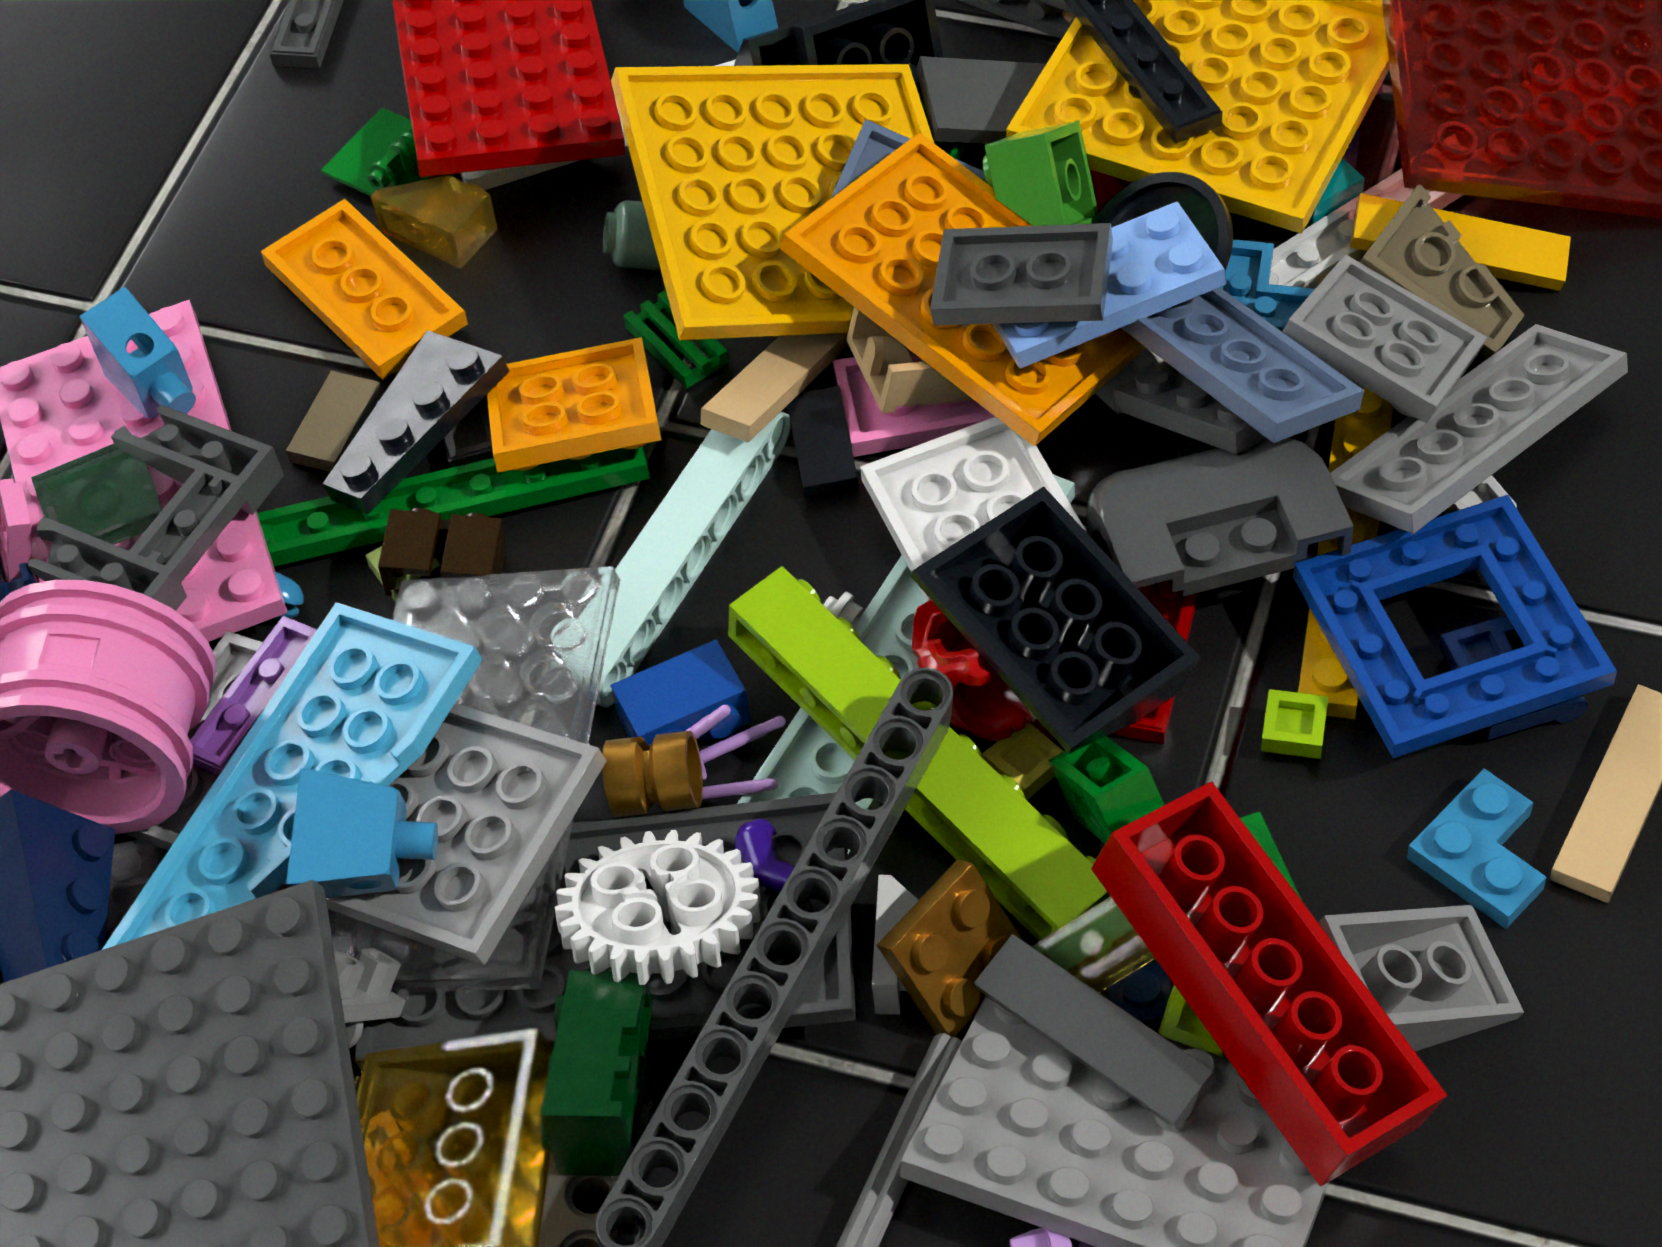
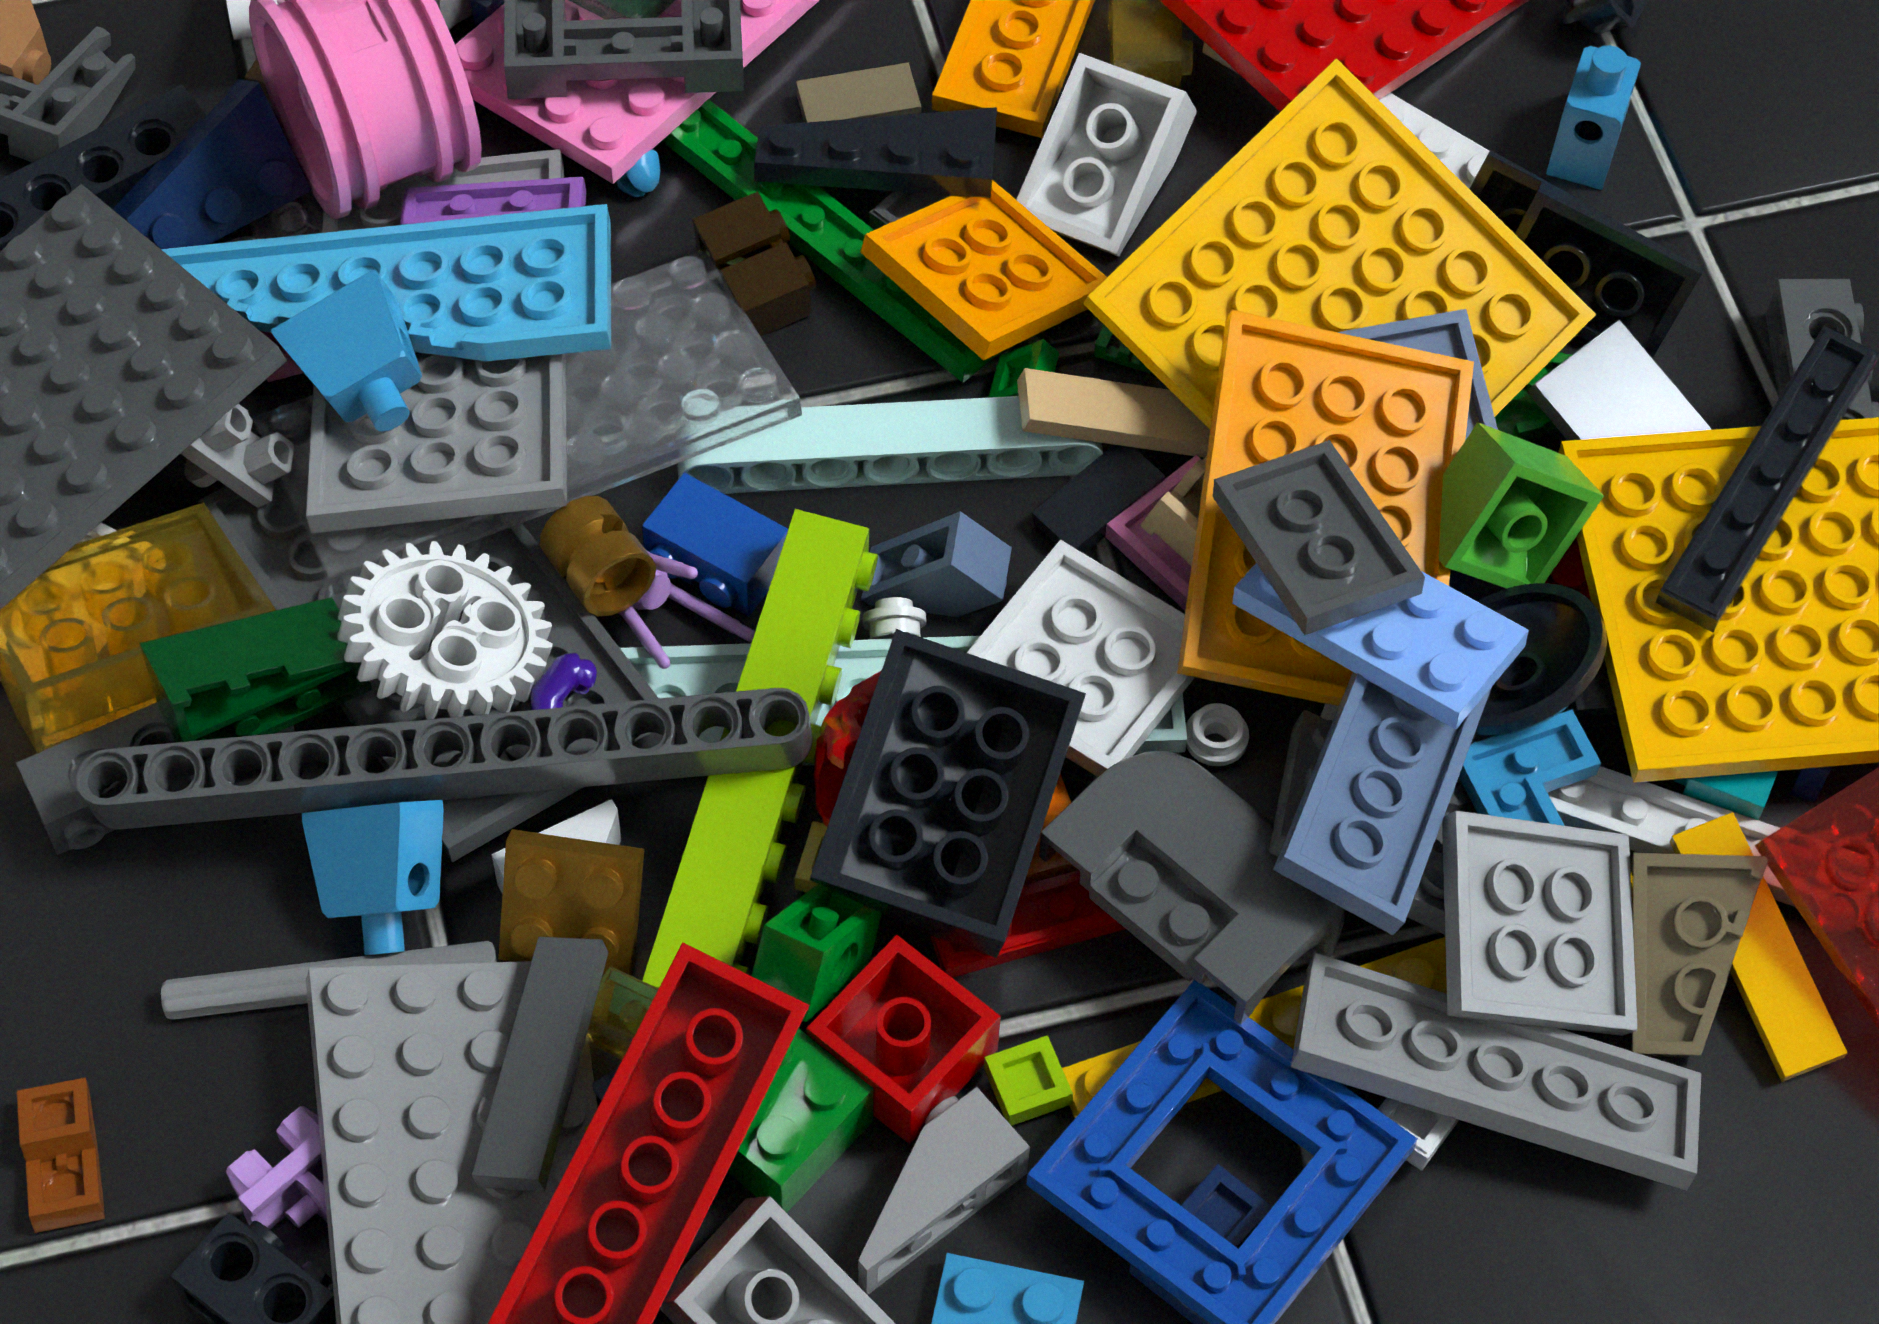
camera: 50 degrees right, 5 degrees up
(523, 284) = (1105, 153): none -> white slope
(679, 431) = (1035, 356): none -> green plate
(823, 551) = (942, 567): none -> sand blue slope
(825, 1074) = (377, 865): none -> dark azure torso
(1078, 456) = (1221, 720): none -> white plate
(1232, 750) = (907, 1035): none -> red brick
(1348, 817) = (953, 1171): none -> light grey slope

